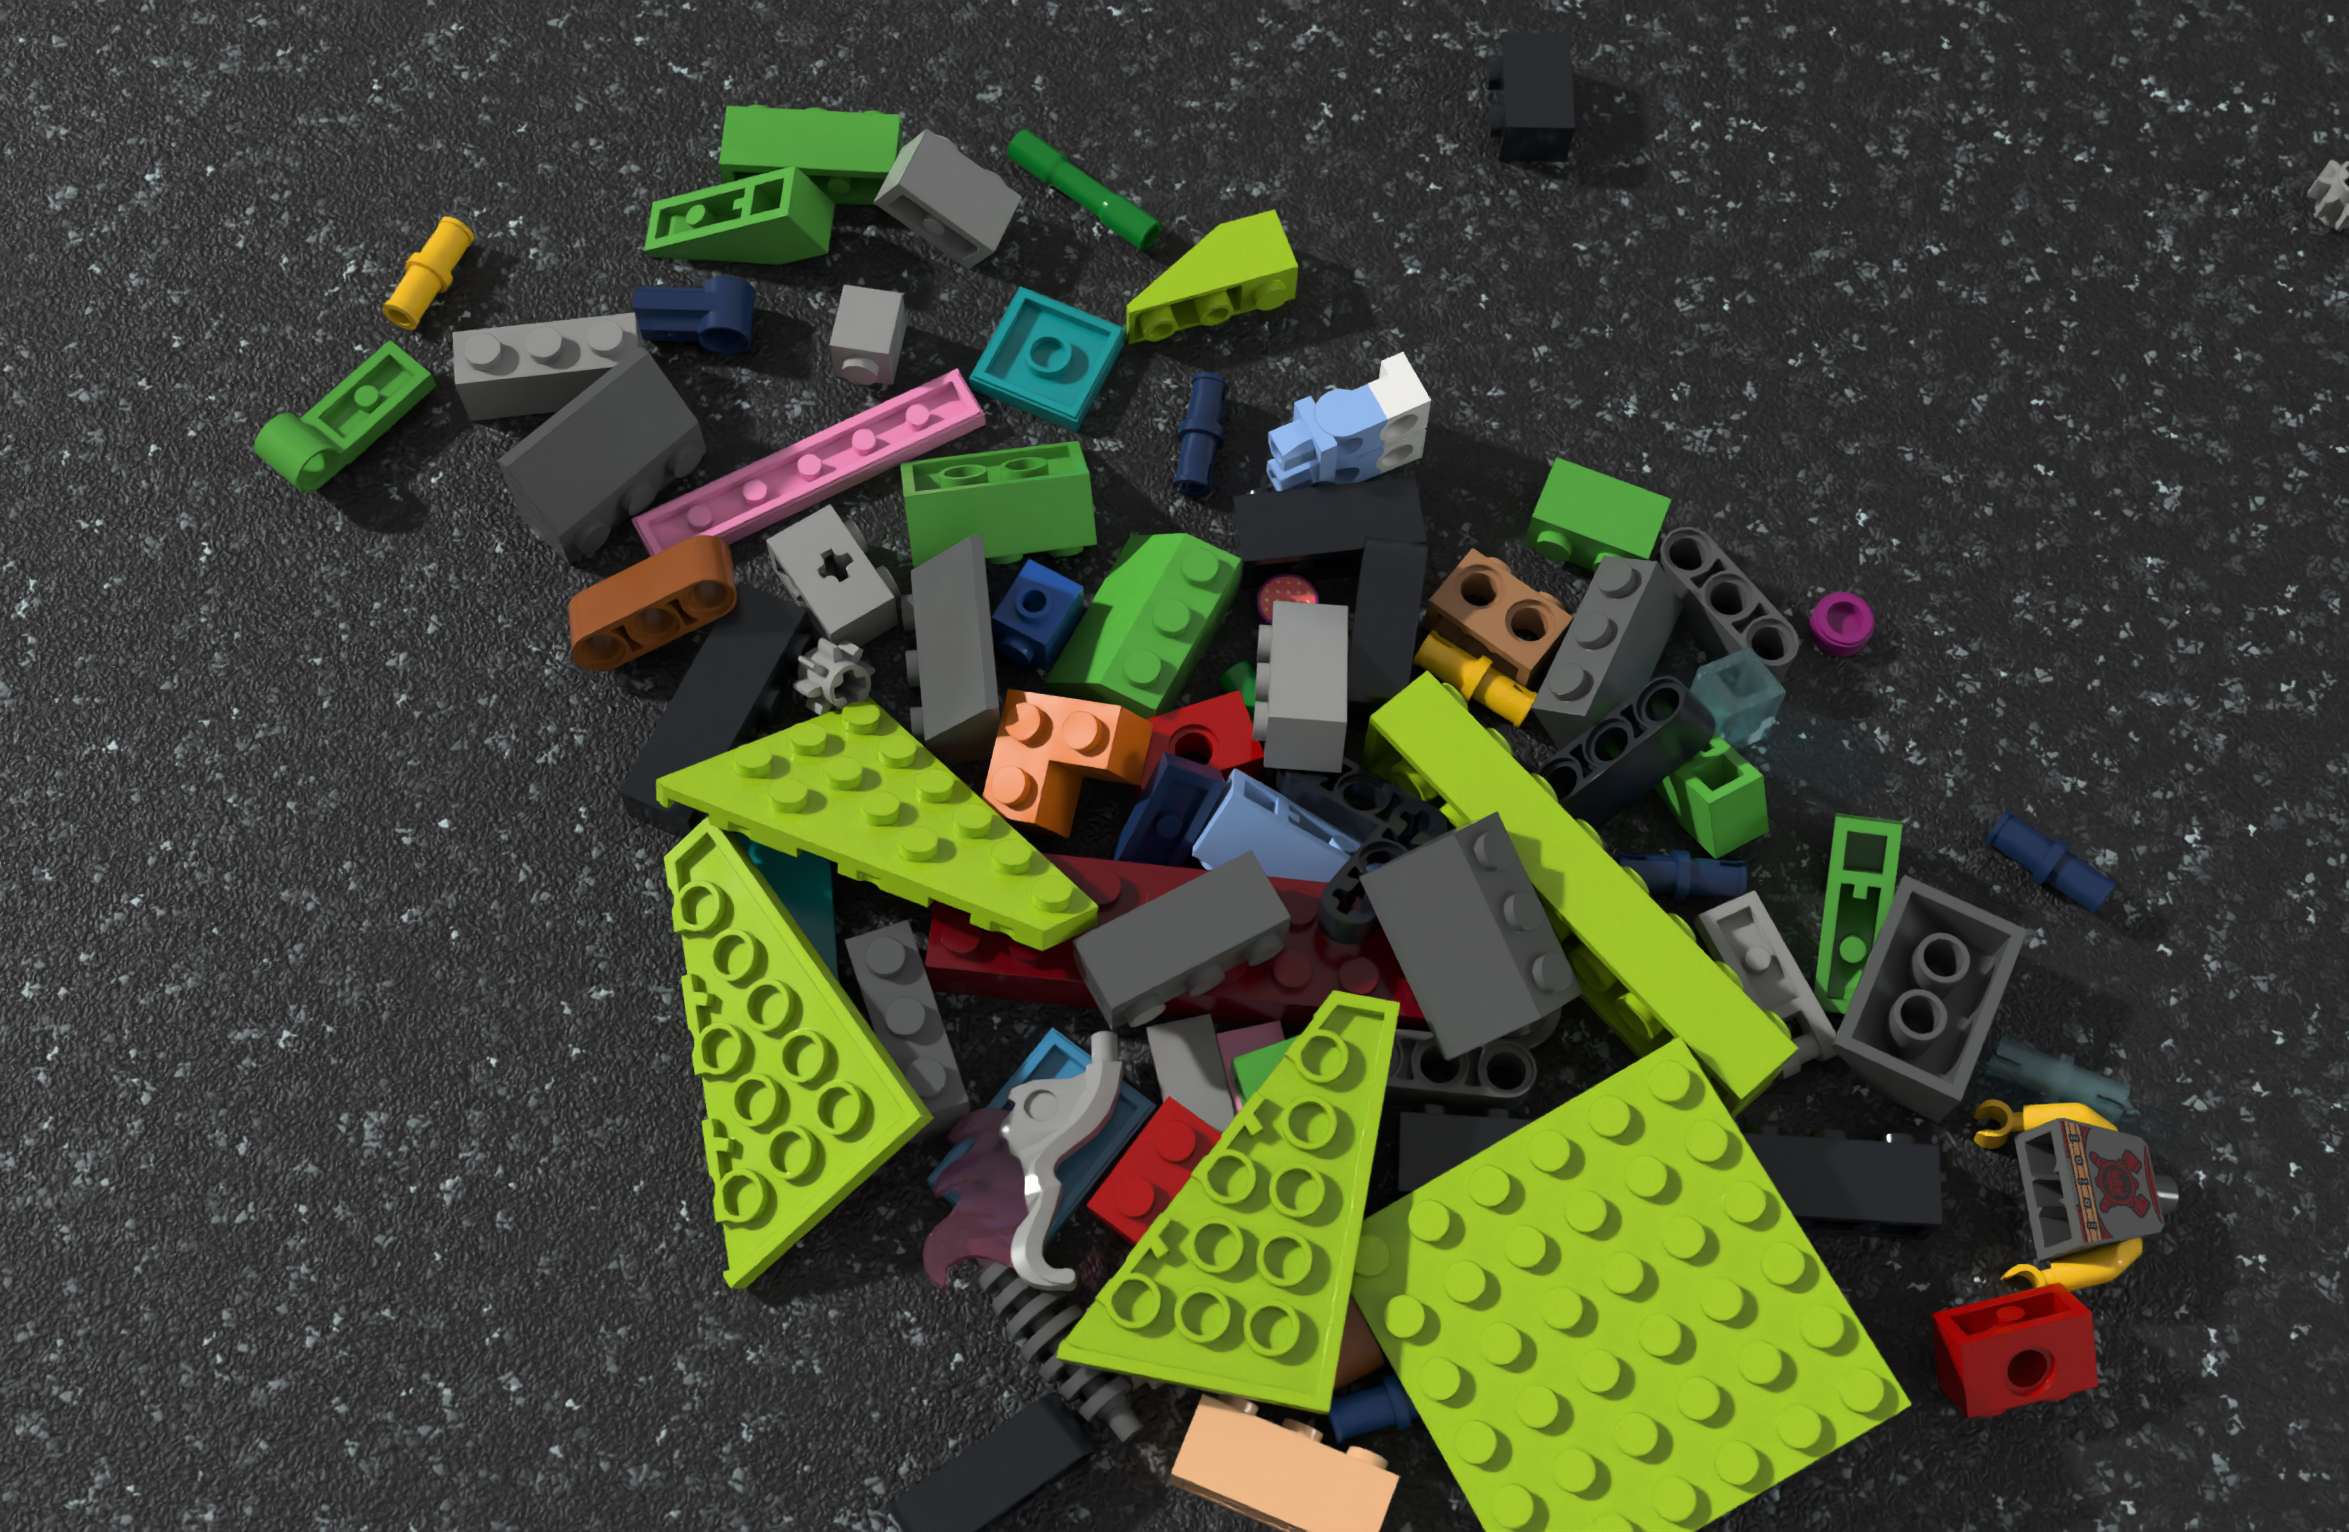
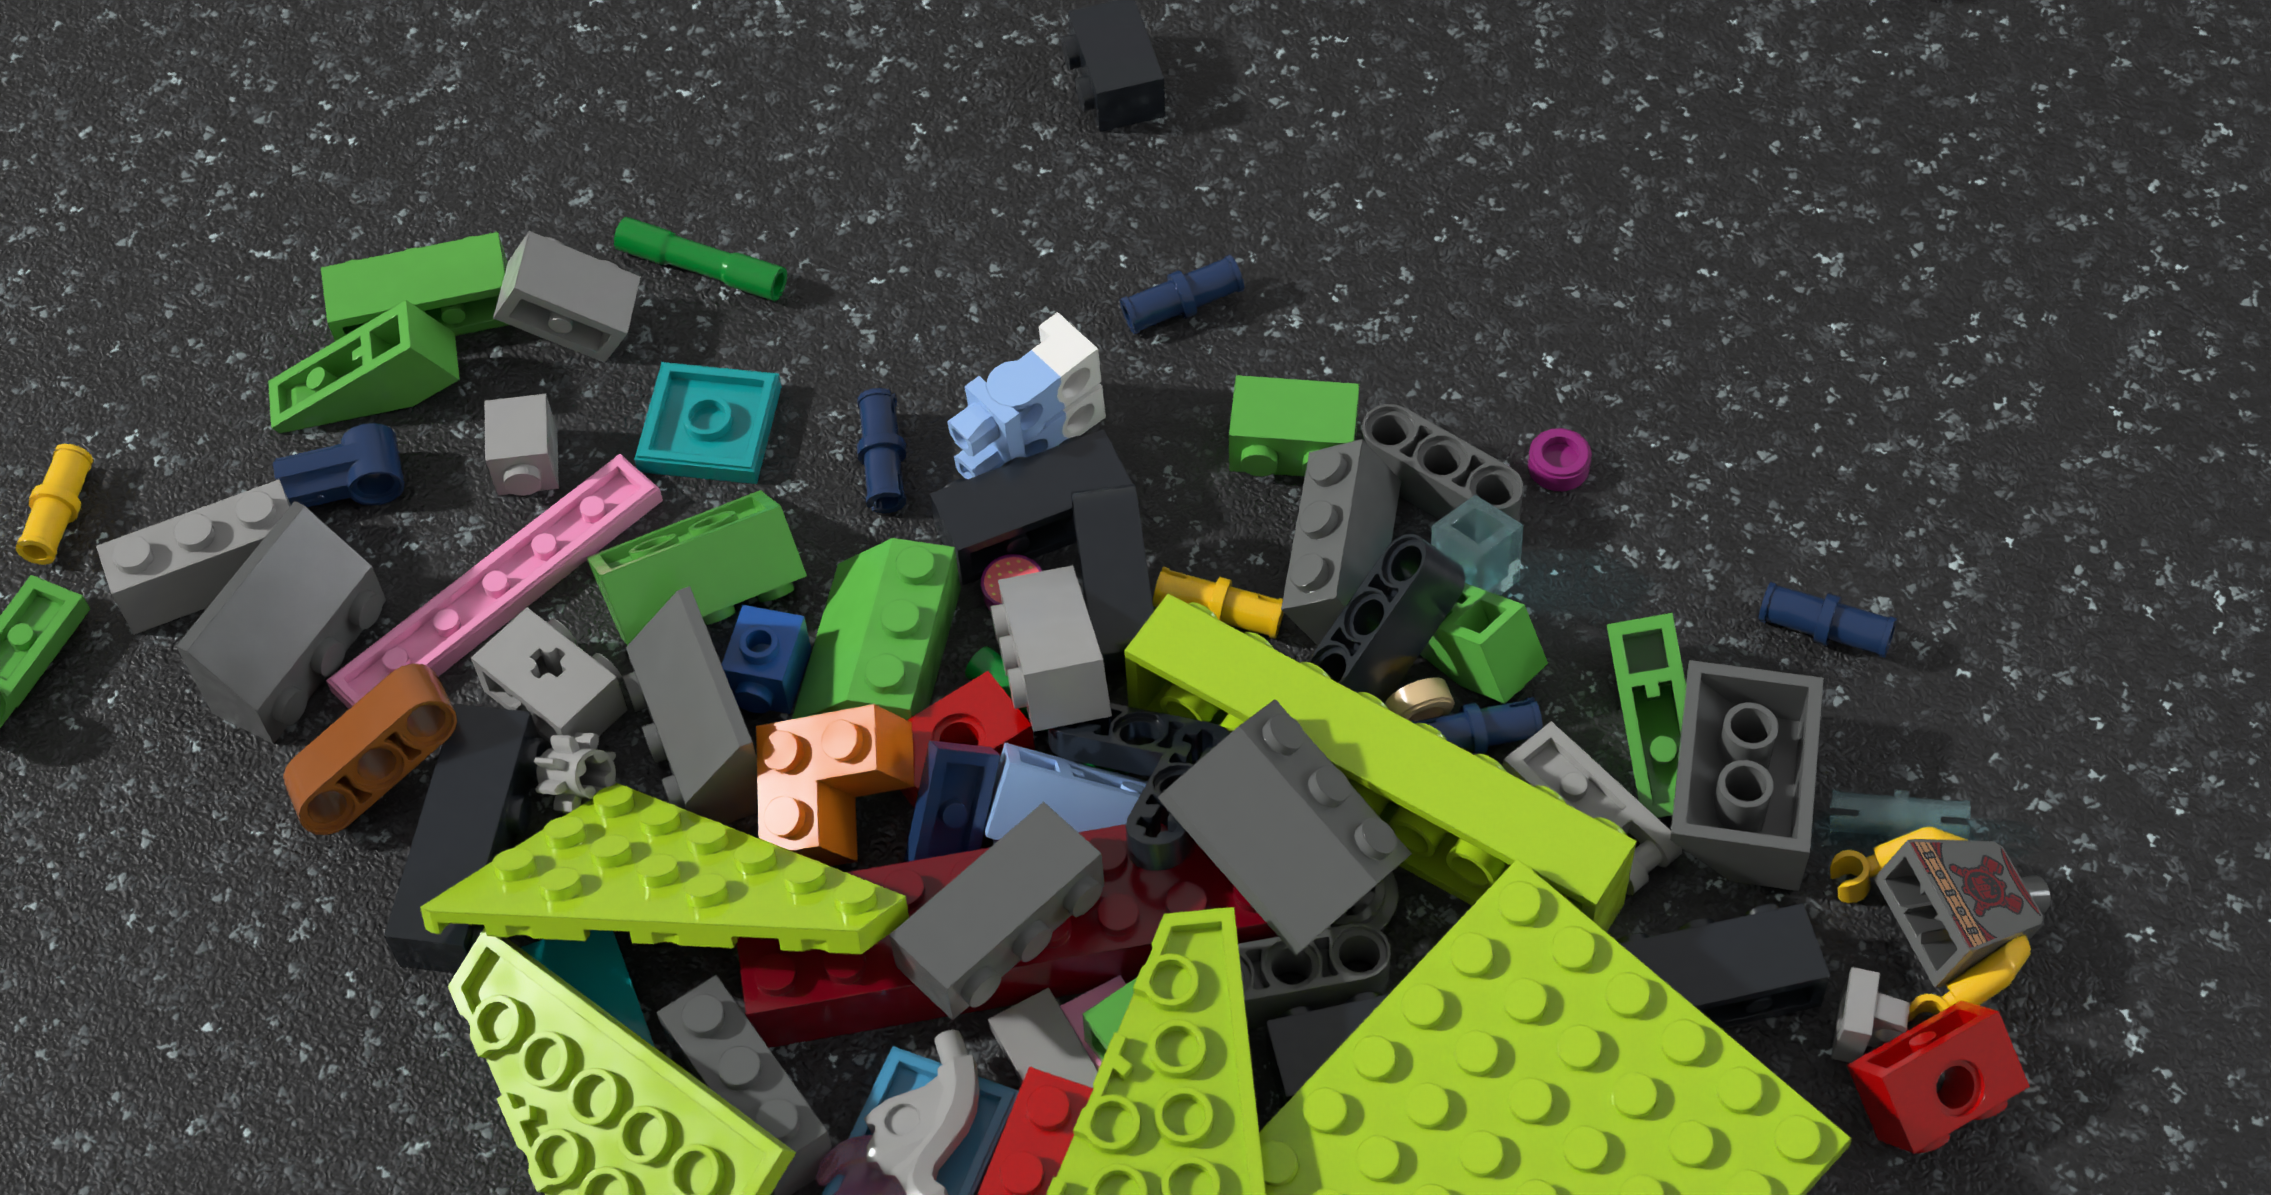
camera: 10 degrees left, 10 degrees down
(1226, 274) = (857, 302): lime slope -> none
(1490, 627) = (1223, 546): medium nougat brick -> none
(1529, 354) = (1182, 294): none -> dark blue pin
(1636, 835) = (1422, 700): none -> tan tile
(1963, 1269) = (1866, 1016): none -> light grey tile

